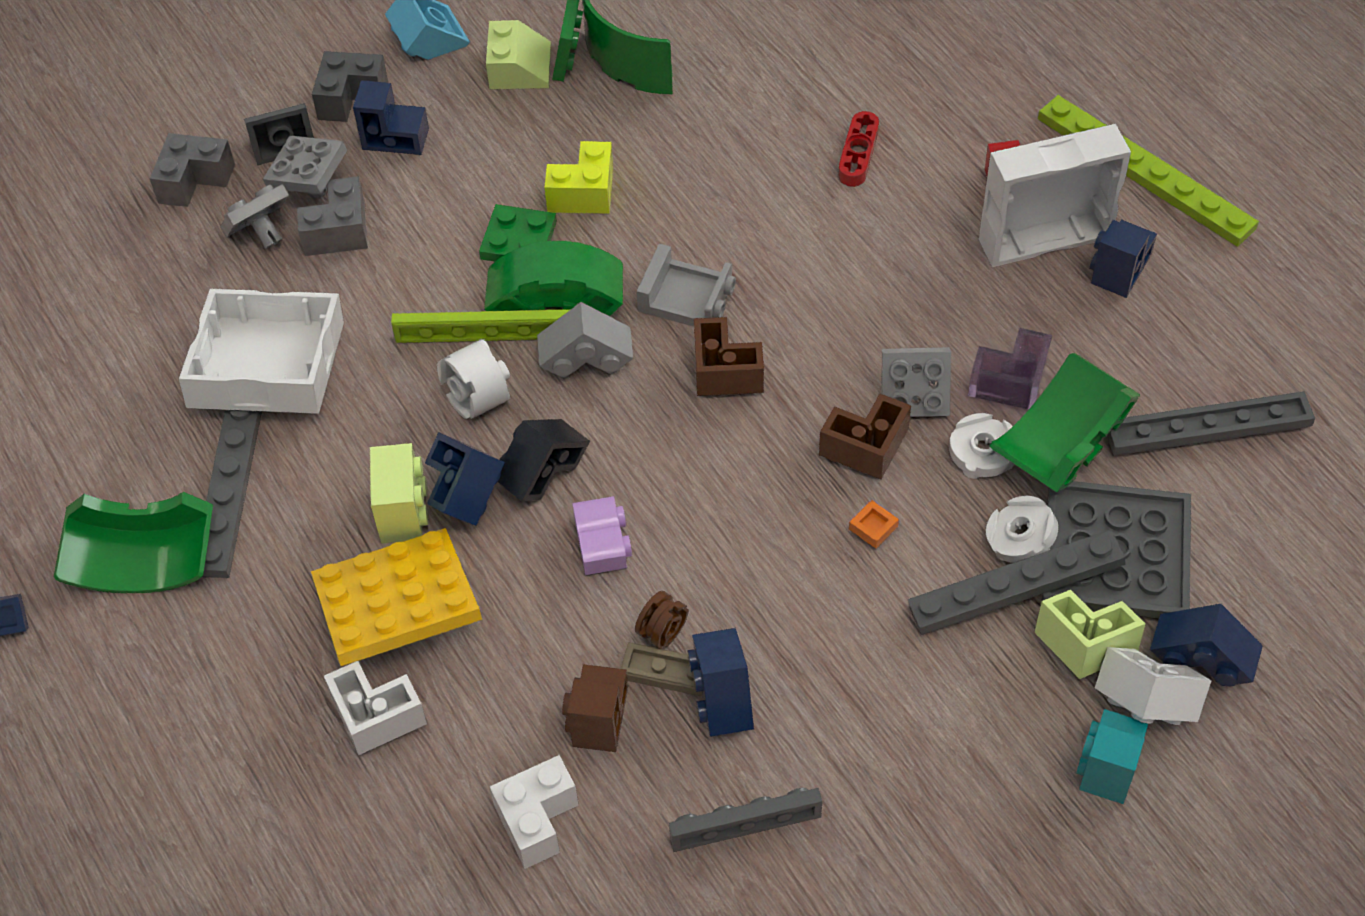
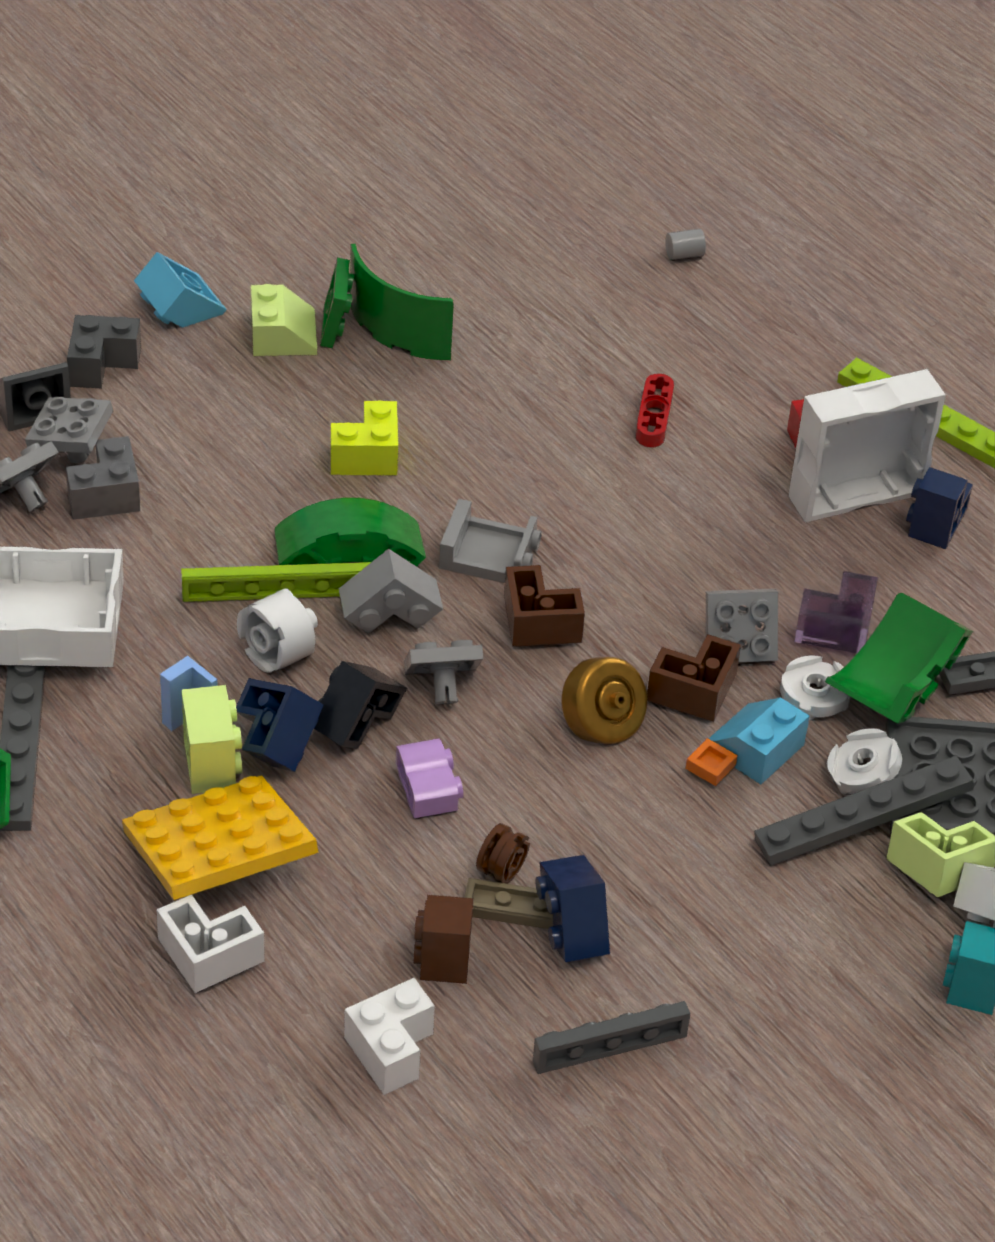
camera: 10 degrees left, 10 degrees down
(373, 433) = (182, 675): none -> light blue panel
(388, 126) = (150, 389): dark blue brick -> none
(515, 228) = (298, 488): green plate -> none
(626, 419) = (443, 664): none -> light grey plate
(776, 458) = (604, 700): none -> pearl gold wheel
(925, 498) = (763, 736): none -> medium azure slope

